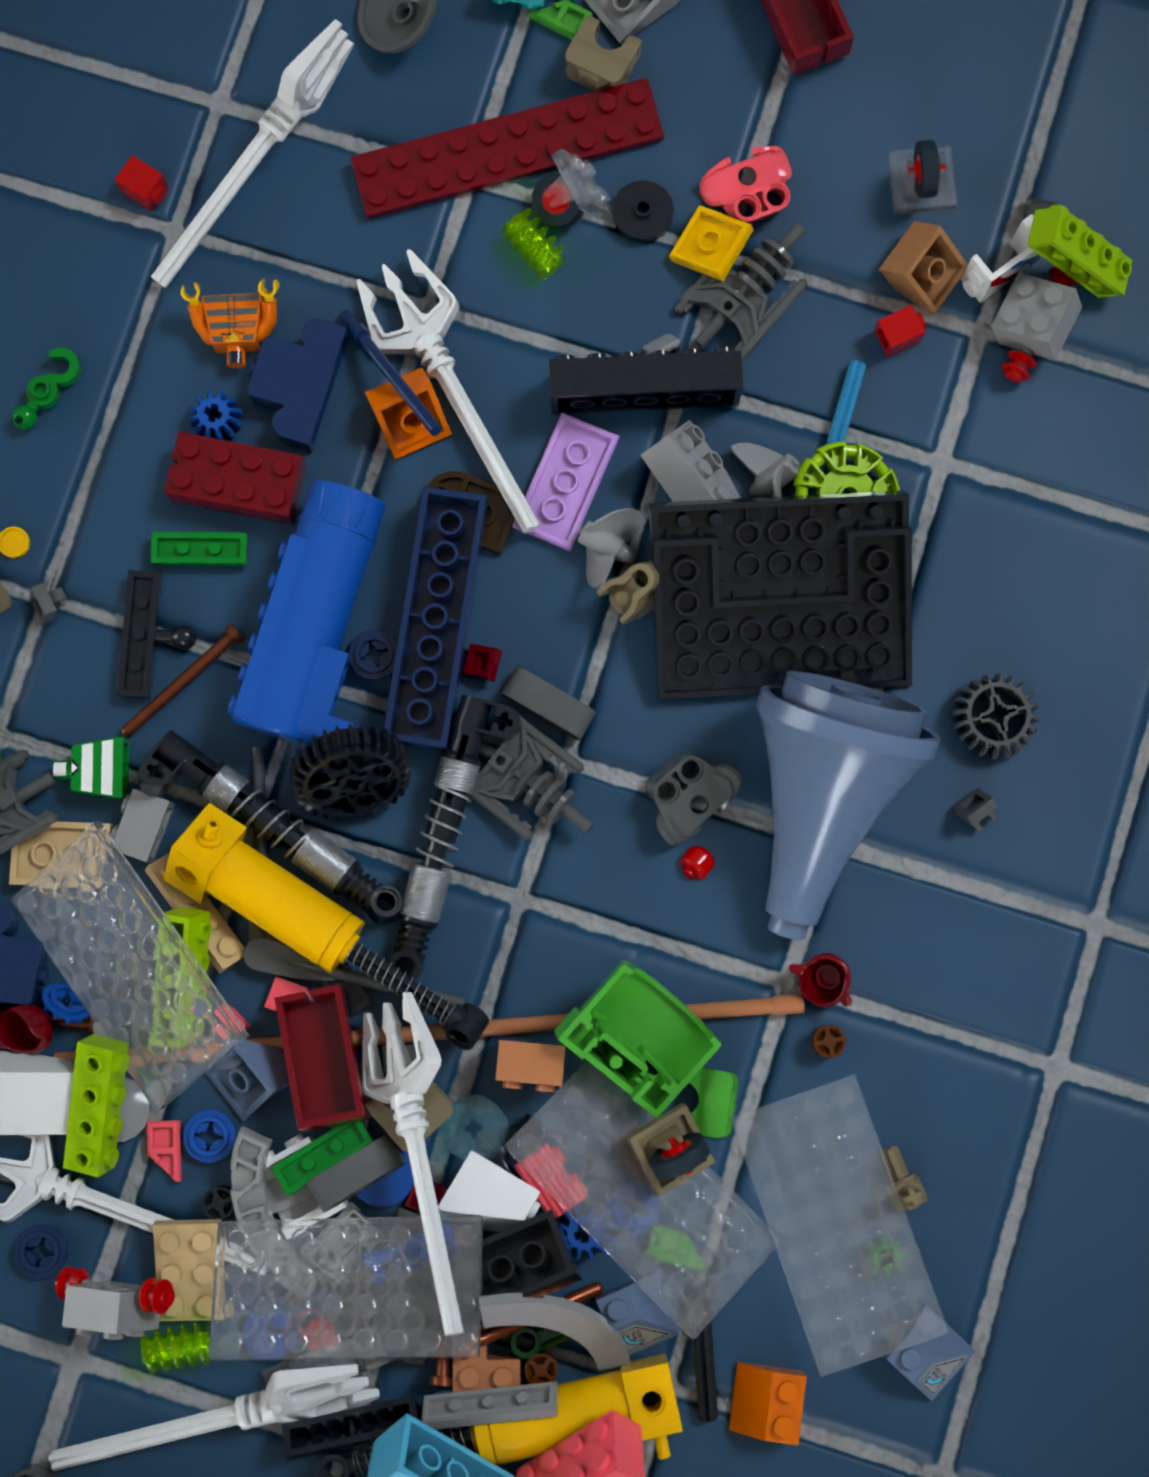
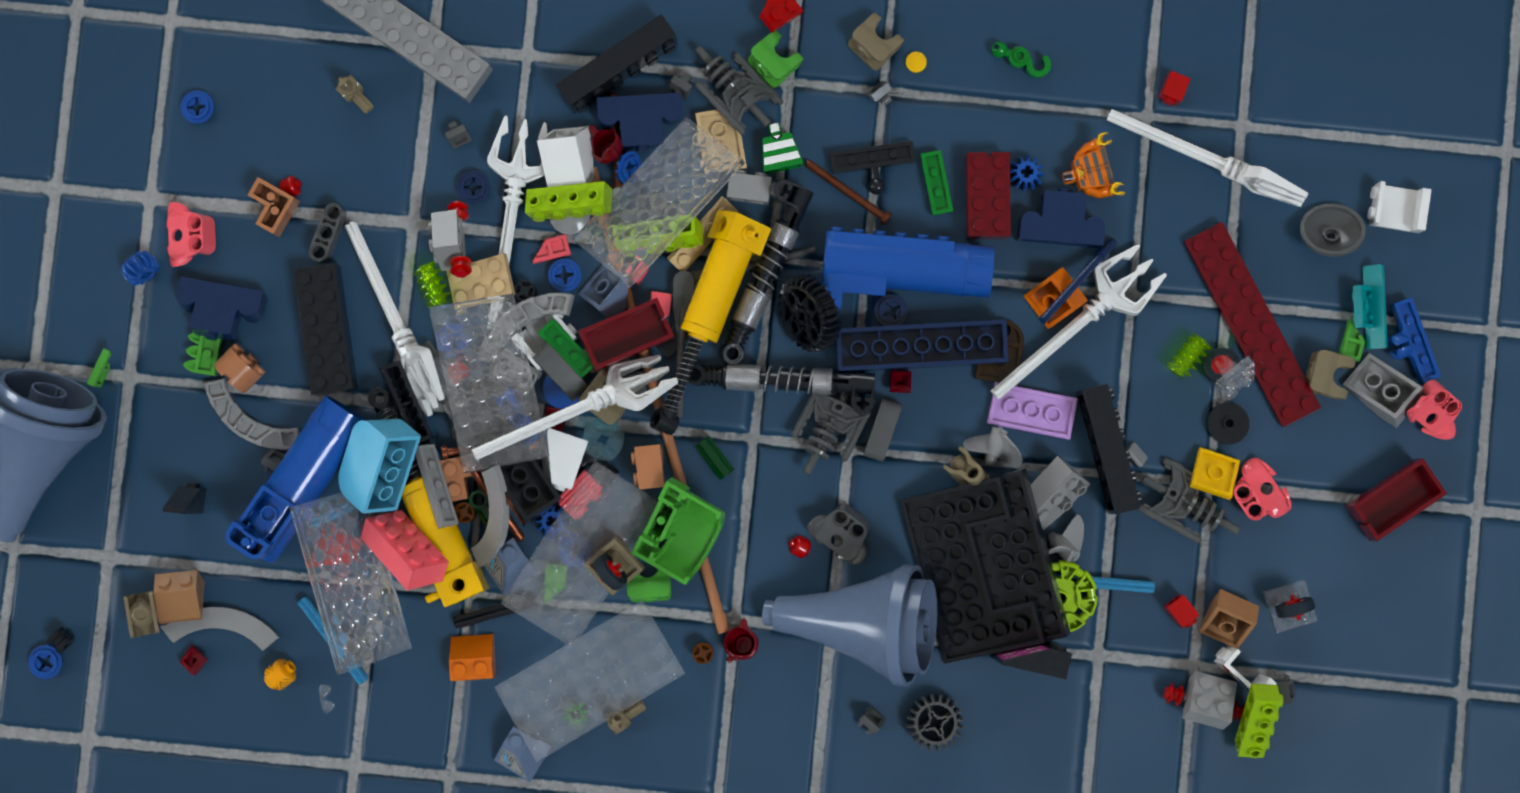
camera: 80 degrees right, 5 degrees up
(537, 962) = (714, 458): none -> dark green axle
(934, 535) = (1043, 658): none -> black slope

